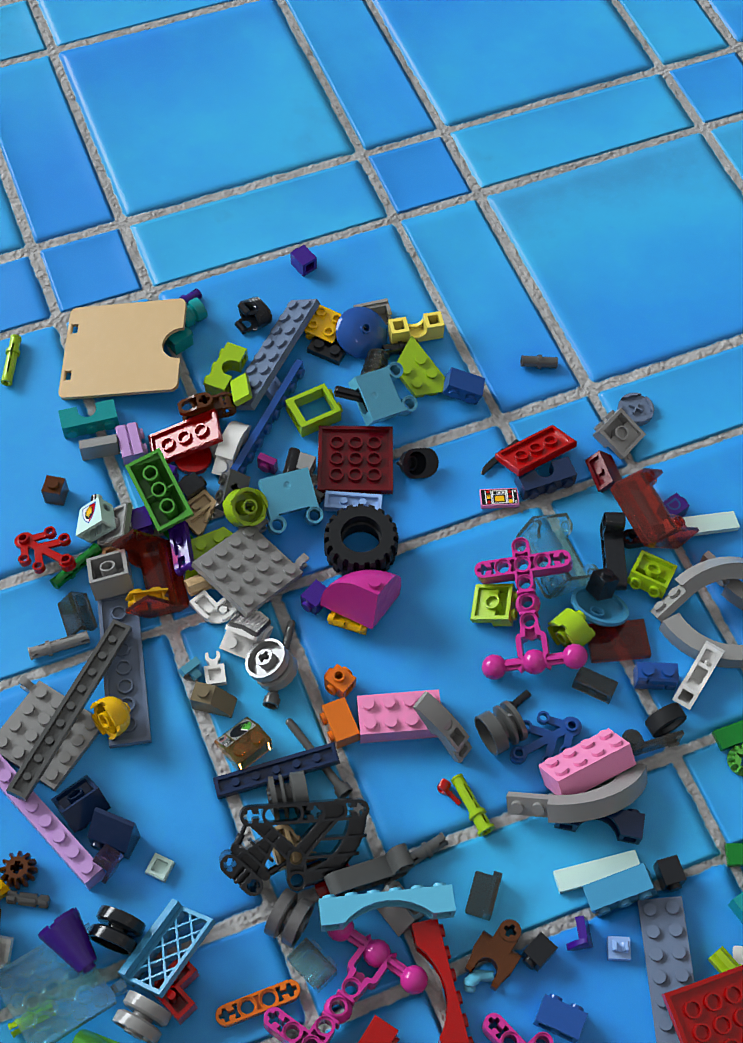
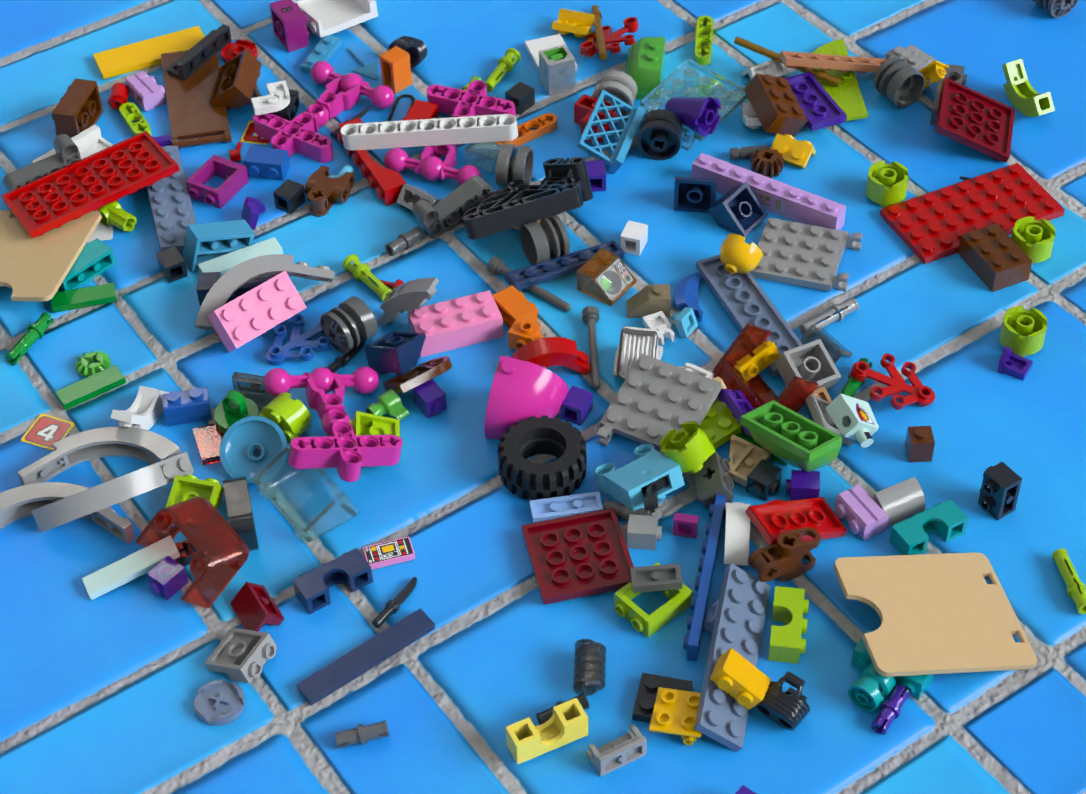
camera: 170 degrees right, 15 degrees down
(22, 426) = (999, 490): none -> black brick
(68, 711) = (781, 254): dark grey plate -> none
(108, 859) = (690, 168): clear purple panel -> none
(160, 867) = (645, 191): light aqua tile -> none
(173, 708) = (687, 294): none -> blue piece
(197, 791) = (634, 238): none -> white brick
(205, 897) = (597, 175): none -> dark purple brick
(241, 389) = (752, 582): lime tile -> none
(271, 664) = (599, 326): light grey wheel -> none
(279, 320) = (740, 679): none -> yellow brick
(308, 405) = (656, 578): none -> dark grey plate
(327, 643) = (554, 352): none -> red arch
(354, 338) = (623, 711): blue dish -> none
(377, 395) = (571, 613): medium azure piece -> none
(384, 980) = (429, 132): none -> white beam
(418, 463) = (503, 562): black piece -> none
(419, 372) = (524, 678): lime wing -> none
(432, 901) = (394, 187): medium azure arch -> none
(439, 635) = (429, 398): none -> dark purple brick
(447, 658) = (419, 375): none -> reddish brown tile
(461, 685) = (395, 352): none -> dark blue slope
(463, 386) = (460, 665): blue brick -> none
(478, 639) = (388, 404): none -> bright green piece
(483, 894) = (344, 225): clear smoke panel -> none
(527, 419) = (365, 657): none -> dark blue tile
(535, 450) = (349, 604): red tile -> none
(602, 584) = (249, 464): black brick -> none
(602, 1016) = (233, 172): none -> magenta window
(612, 654) = (233, 408): none -> green tile
(618, 948) = (217, 214): light blue tile -> none
(639, 746) = (205, 345): clear smoke door -> none
(665, 720) = (168, 358): black tyre -> none

